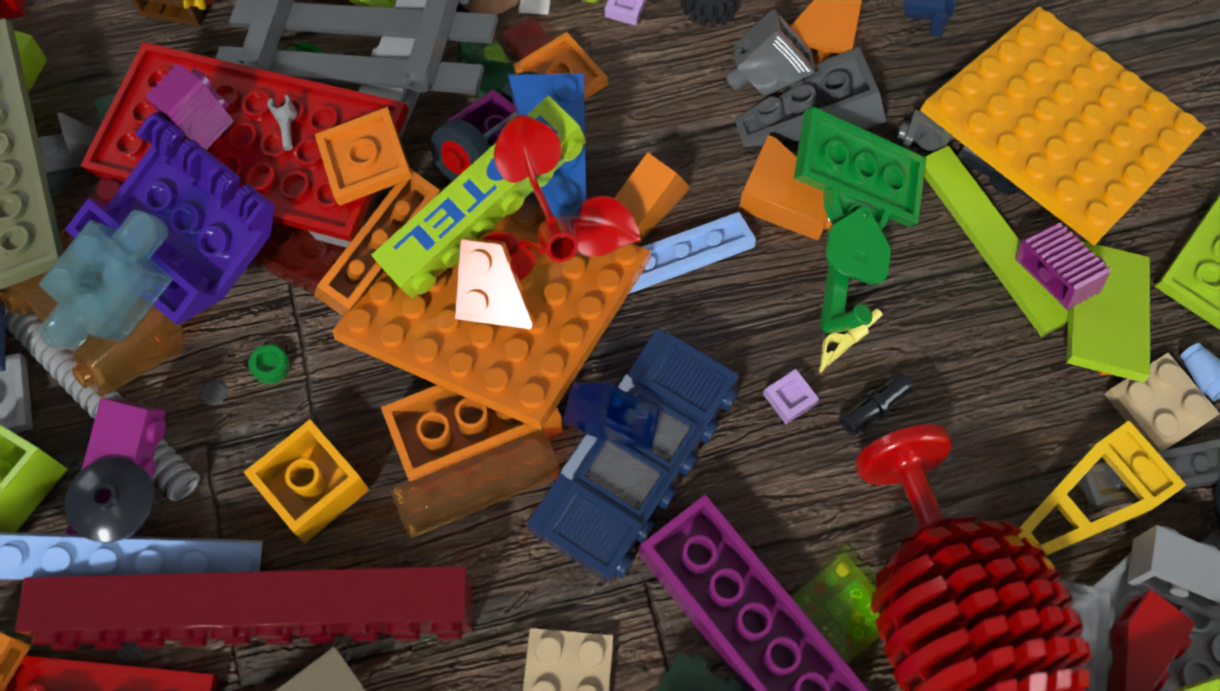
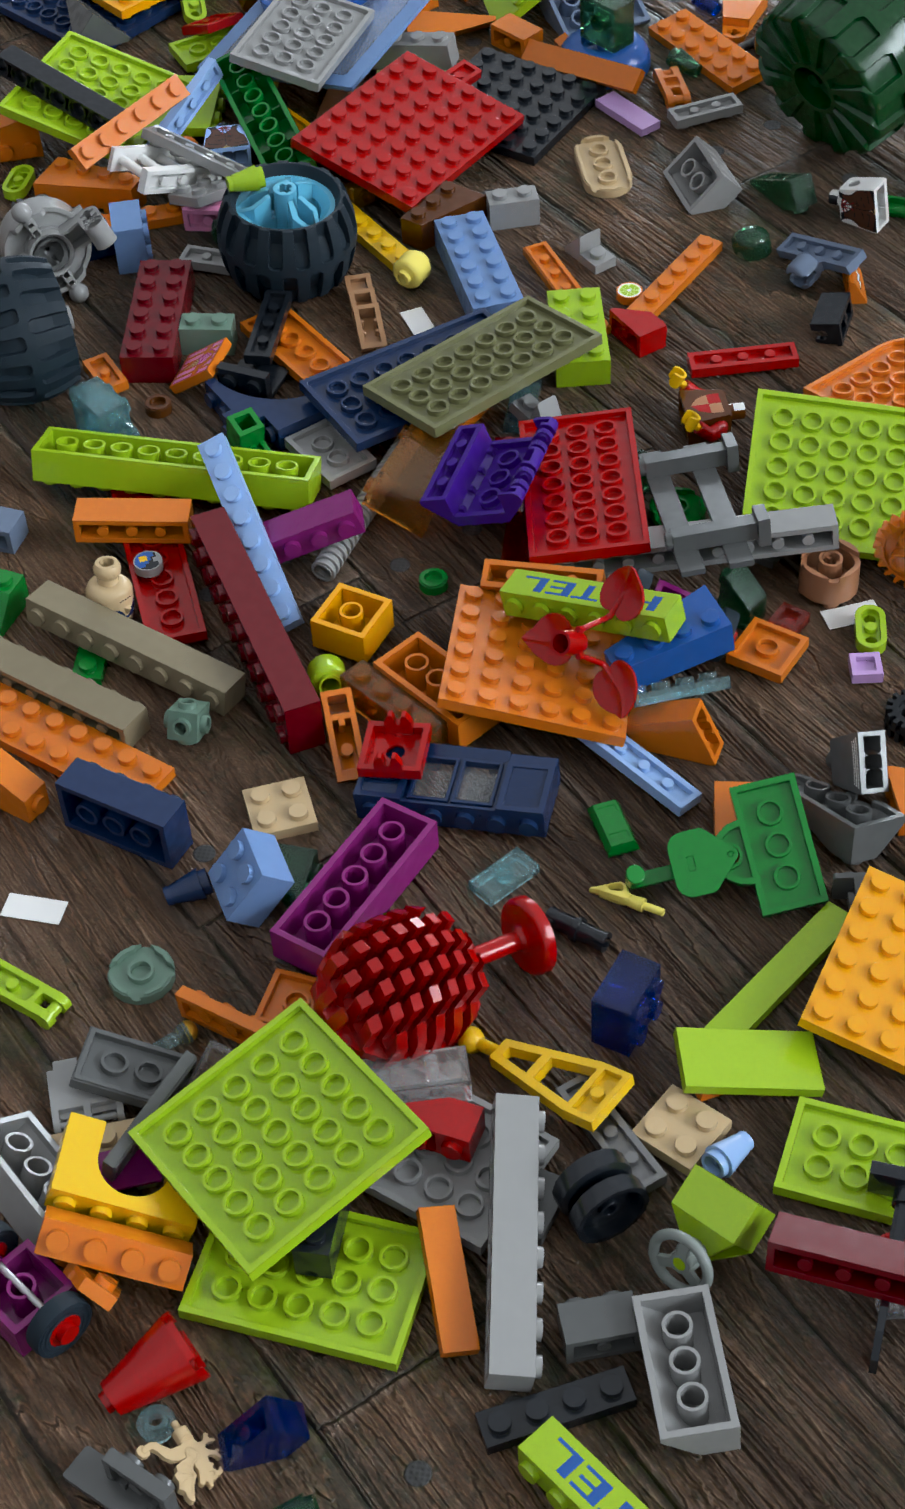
camera: 75 degrees right, 20 degrees down
(123, 290) = (426, 453): clear light blue brick -> none
(126, 510) = (289, 524): black dish -> none
(191, 105) = (575, 438): magenta brick -> none
(284, 116) = (607, 489): light grey hand -> none
(363, 156) = (589, 534): orange plate -> none
(377, 542) = (325, 672): none -> lime head
(488, 286) = (526, 635): wing -> none
(488, 555) = (342, 732): none -> orange slope
(567, 475) = (391, 733): none -> red piece
(602, 169) = (683, 687): none -> clear light blue plate
(611, 414) = (469, 747): clear blue slope -> none
(740, 316) = (612, 828): none -> green tile
(772, 452) = (504, 876): none -> clear light blue plate
(791, 396) = (554, 872): lavender plate -> none
(1020, 390) = (626, 1003): none -> clear blue brick
(1063, 265) = (763, 1006): magenta brick -> none

